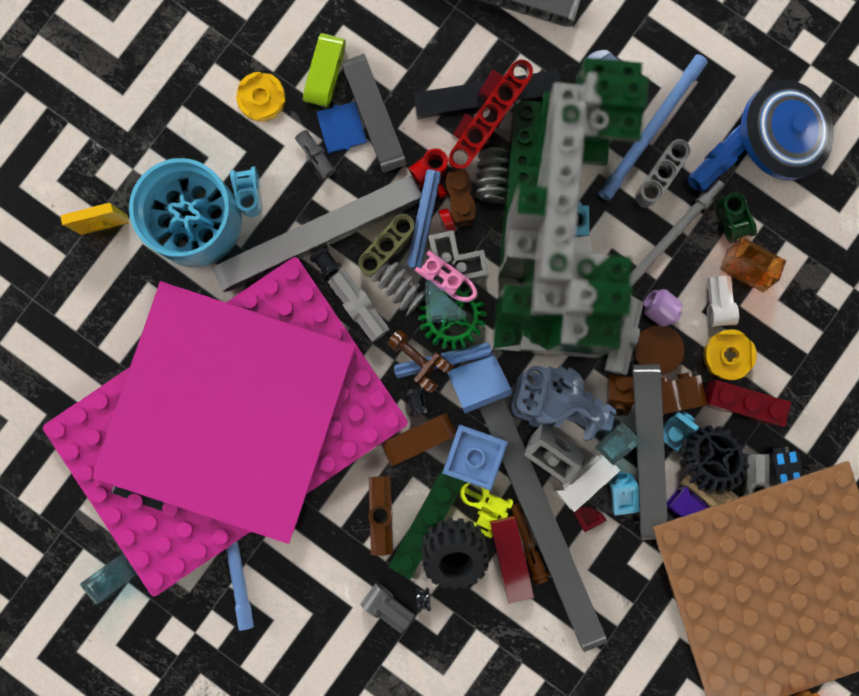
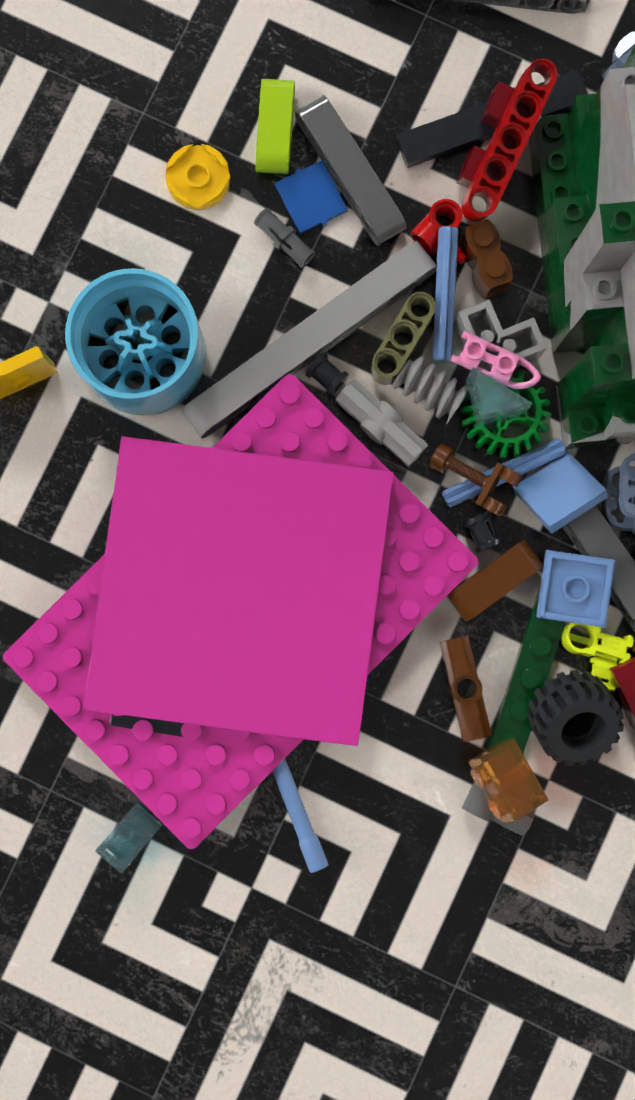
camera: 10 degrees left, 0 degrees up
(246, 187) = (205, 298): medium azure piece -> none
(394, 591) = (507, 781): none -> clear orange brick
(423, 599) = (547, 785): black bush -> none
(446, 220) = (473, 290): red tile -> none
(489, 175) = (519, 222): light grey piece -> none

